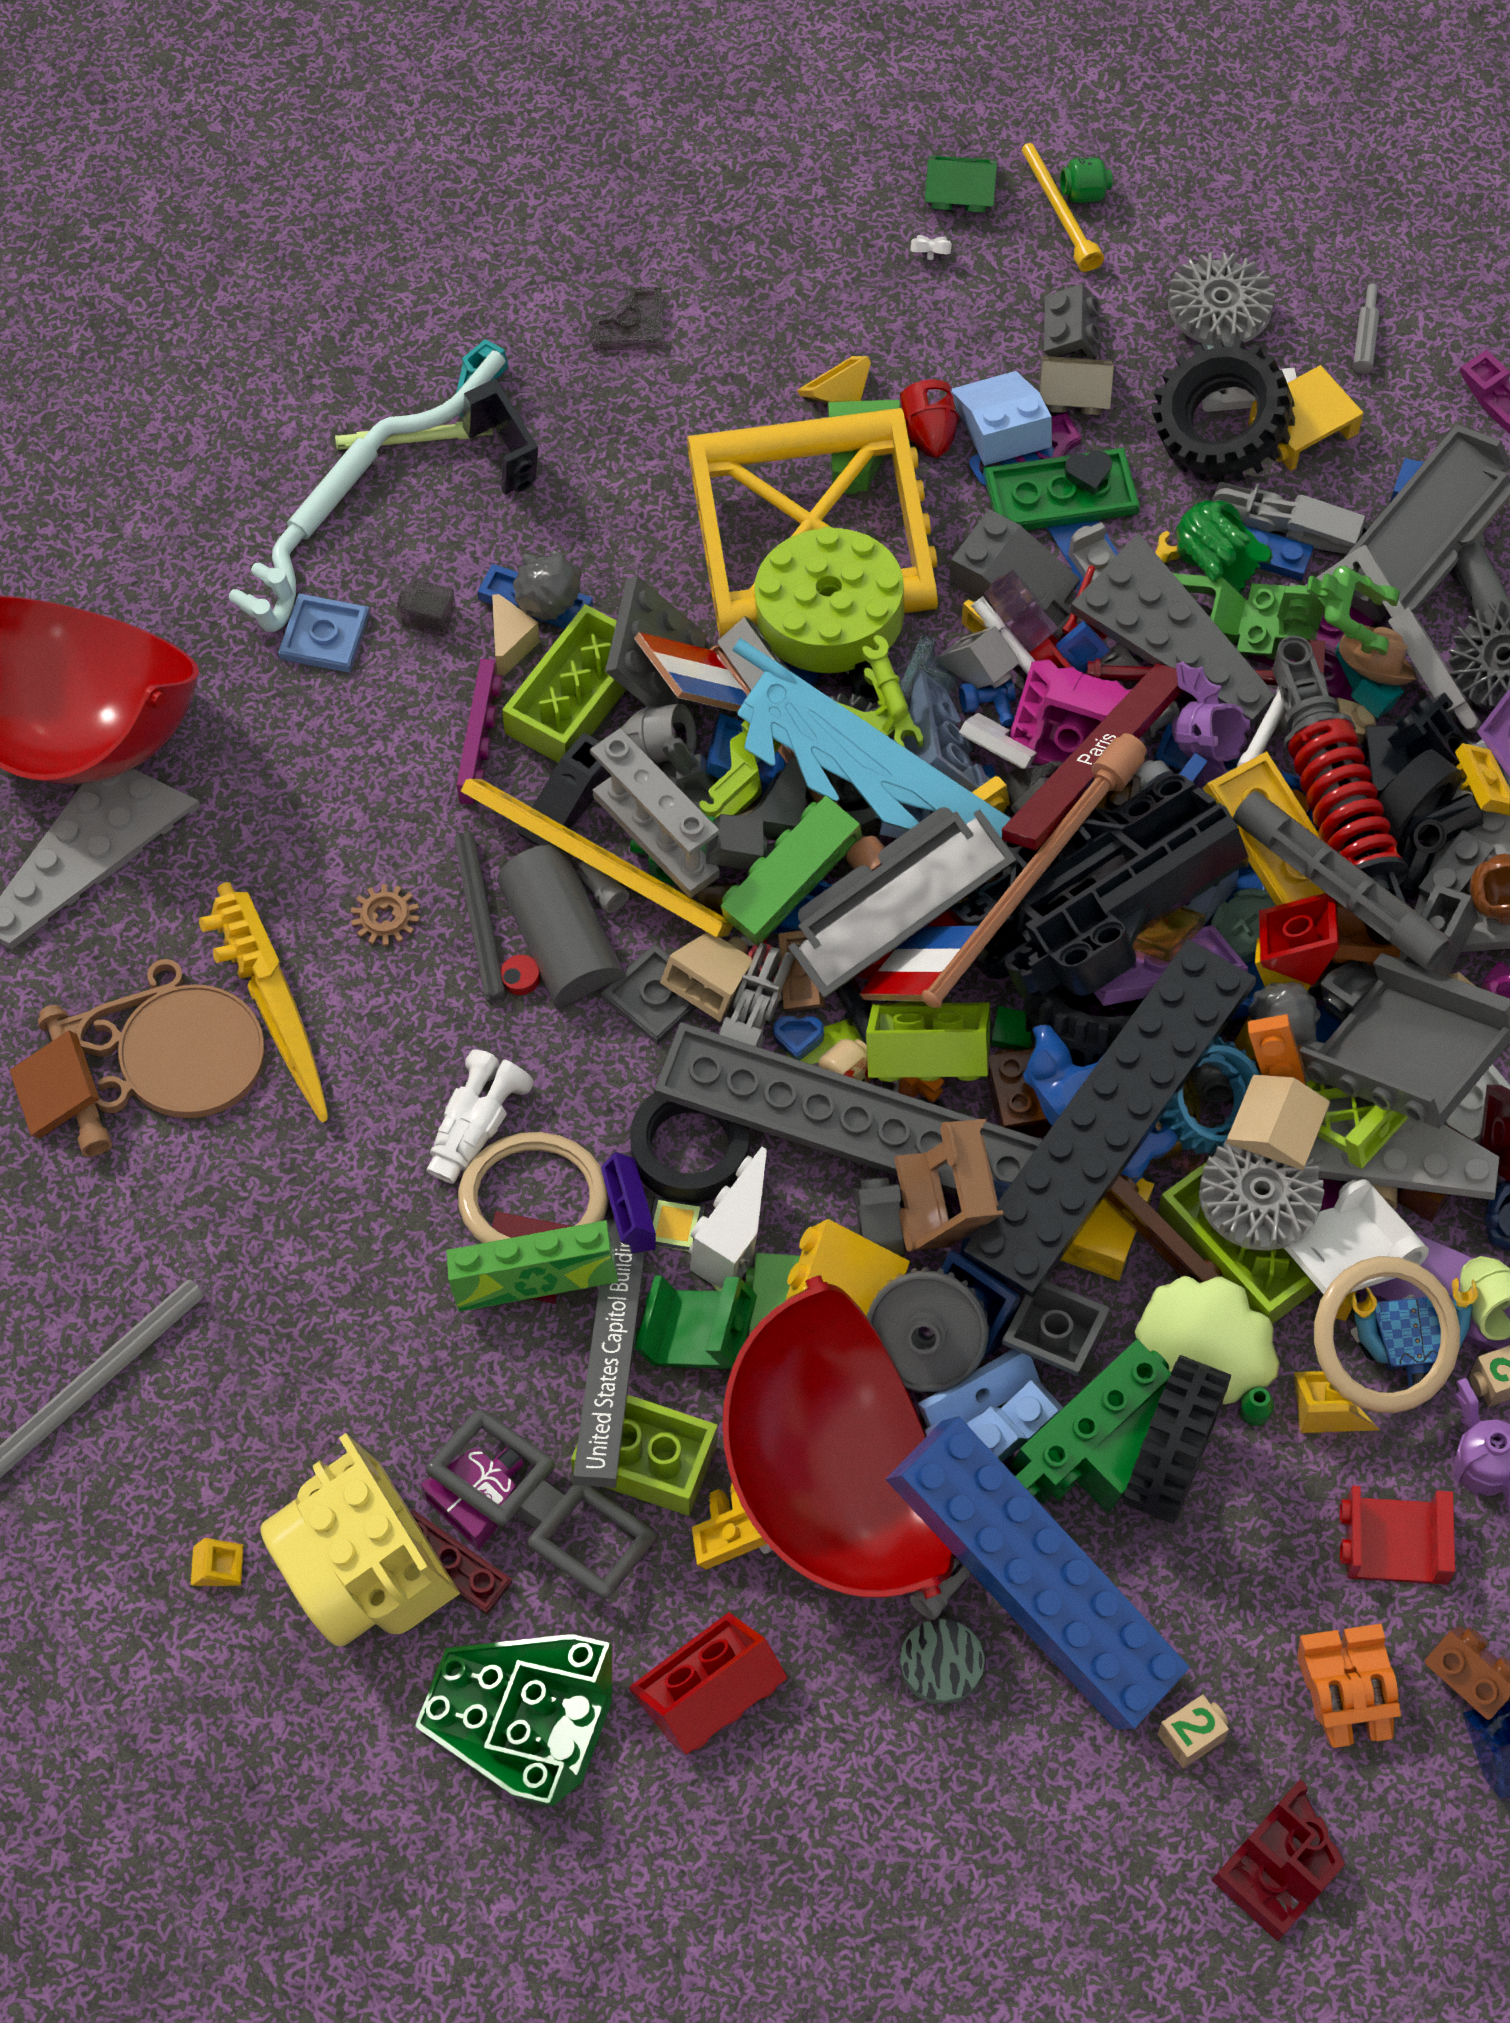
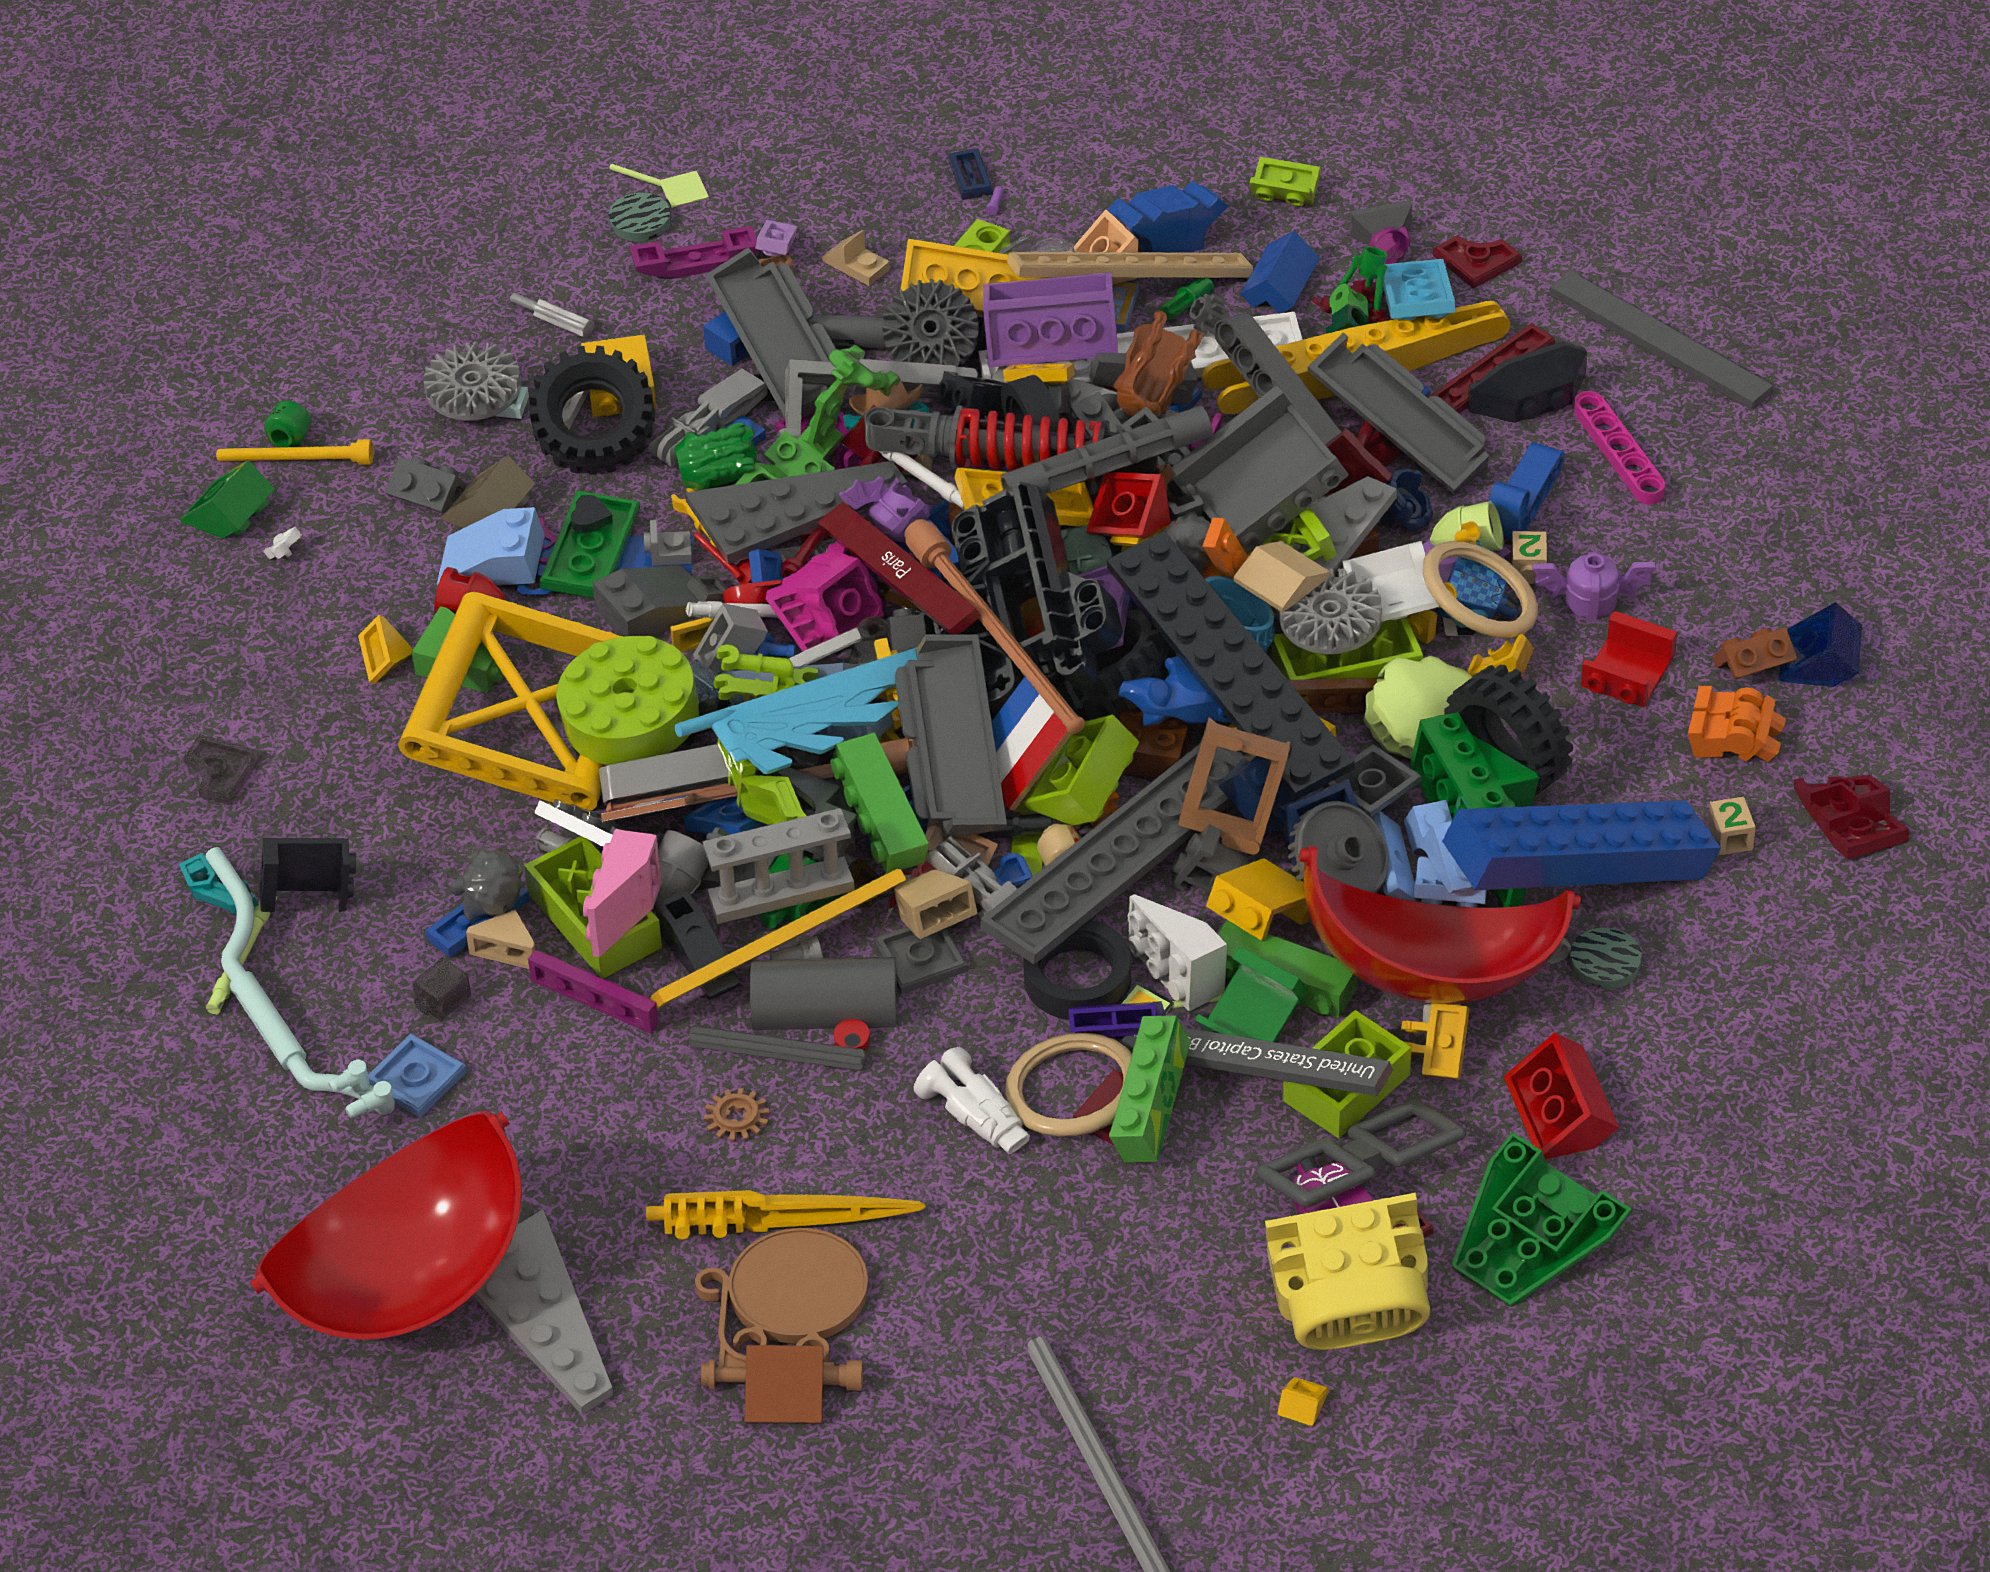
camera: 65 degrees left, 15 degrees down
(556, 690) = (622, 888): none -> bright pink slope
(1020, 610) = (716, 582): clear purple brick -> none

